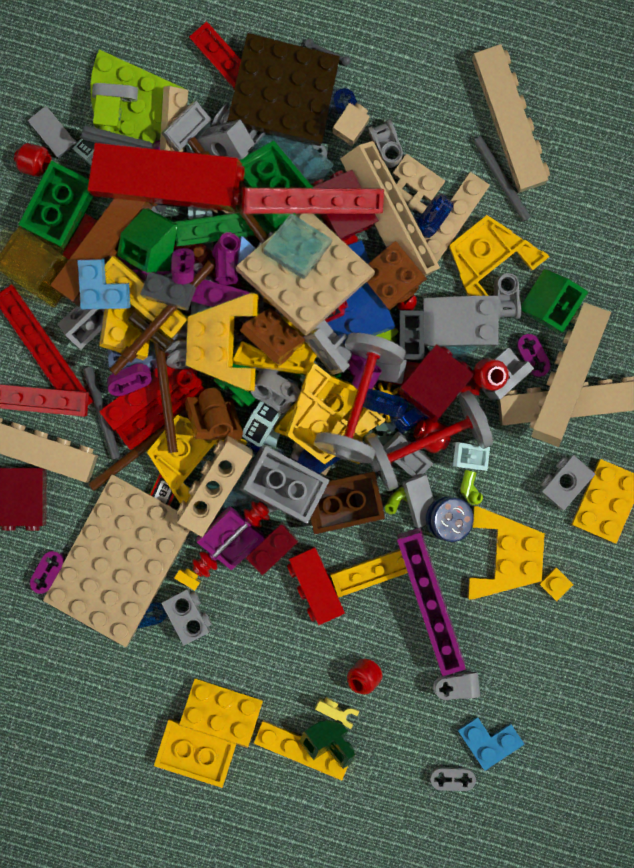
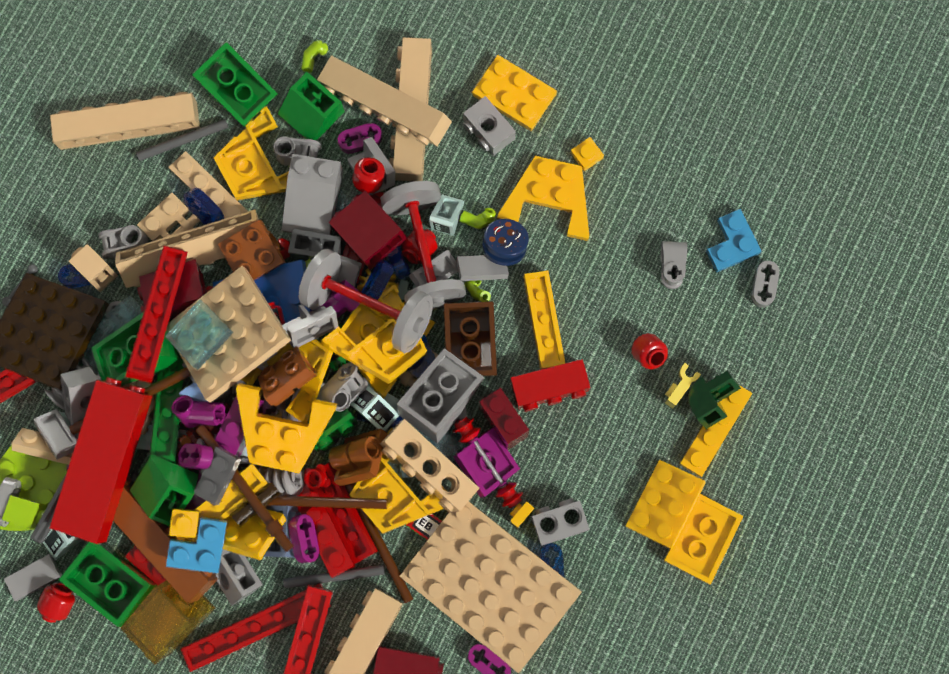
camera: 75 degrees left, 10 degrees down
(119, 269) = (184, 523): none -> yellow plate
(431, 601) = (584, 271): magenta brick -> none
(564, 221) = (234, 84): none -> green slope
(615, 289) = (311, 52): none -> lime arm

